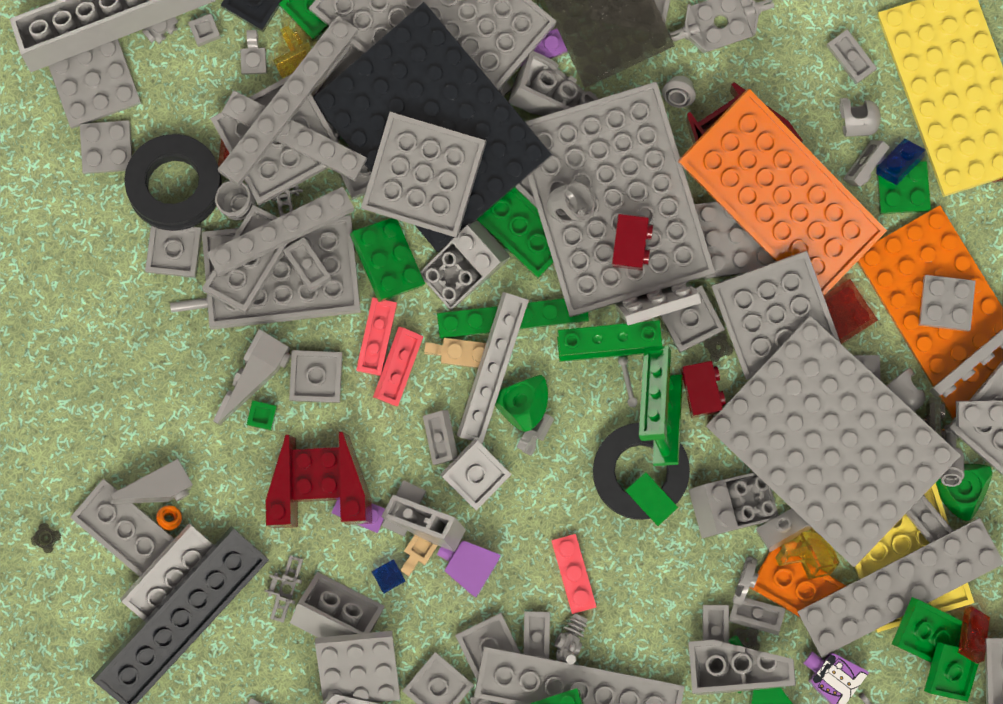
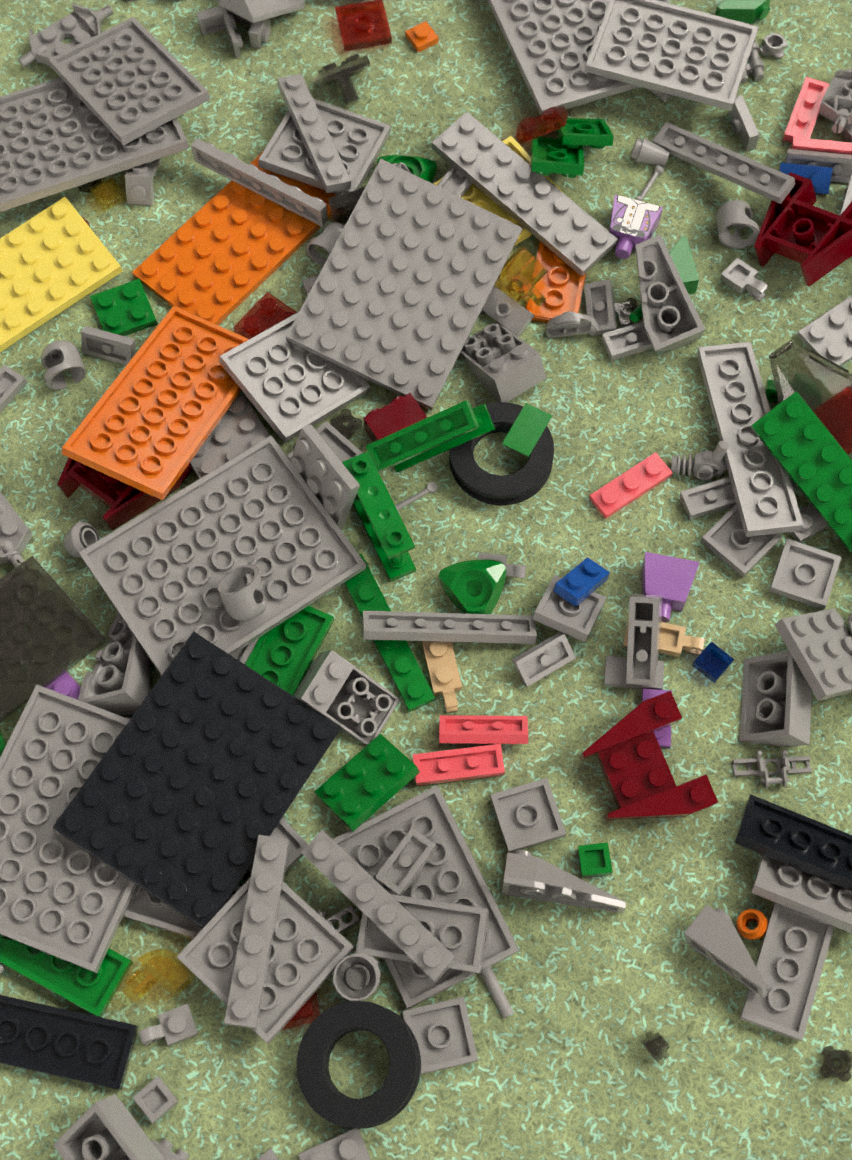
camera: 110 degrees left, 15 degrees down
(107, 407) = (656, 1045): none -> clear smoke plate
(288, 100) = (219, 948): light grey plate -> none
(423, 174) = (259, 762): light grey plate -> none
(495, 493) = (581, 581): none -> blue plate
(630, 242) = (266, 520): dark red brick -> none
(900, 161) = (97, 314): clear blue plate -> none
(947, 303) = (230, 234): light grey plate -> none

